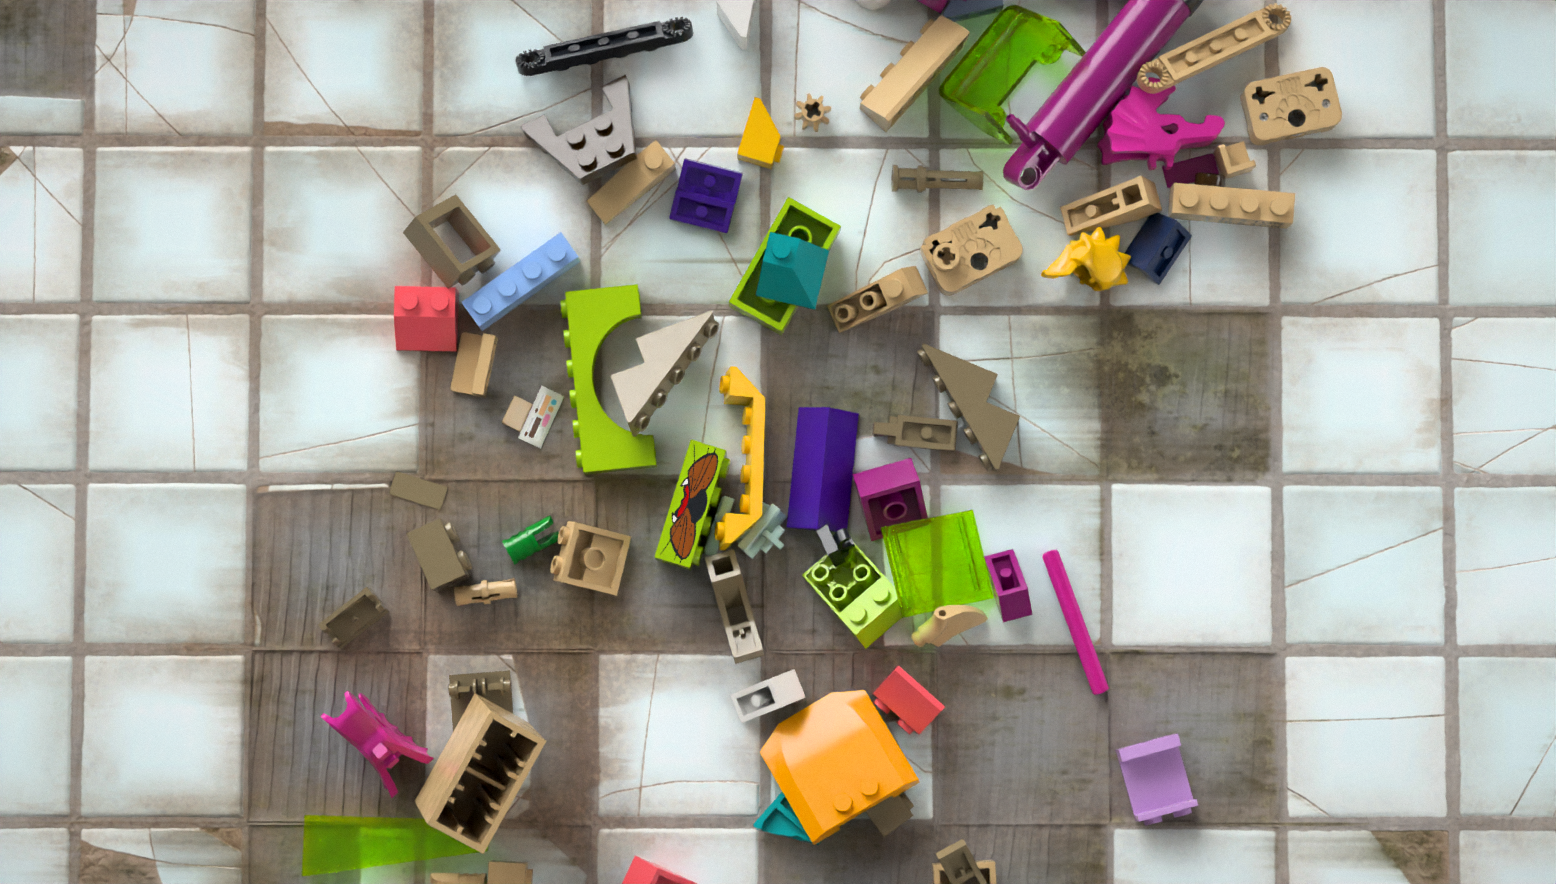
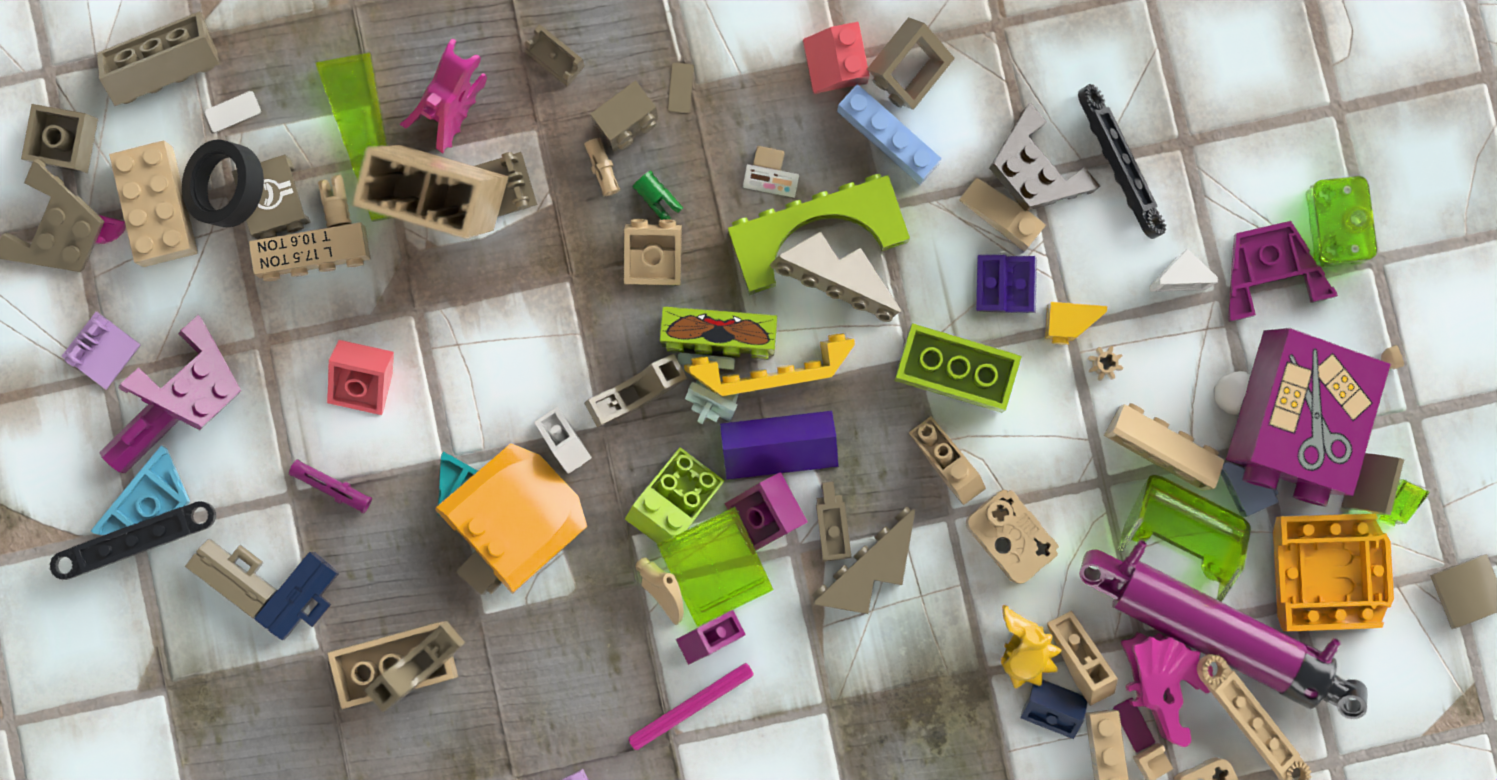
camera: 80 degrees right, 0 degrees up
(474, 364) = (805, 111): tan panel -> none
(792, 271) = (953, 373): teal slope -> none
(835, 543) = (712, 470): black tile -> none
(907, 700) = (584, 567): coral slope -> none
(974, 180) = (1078, 524): dark tan pin -> none
(1209, 179) = (1129, 743): dark brown tile -> none

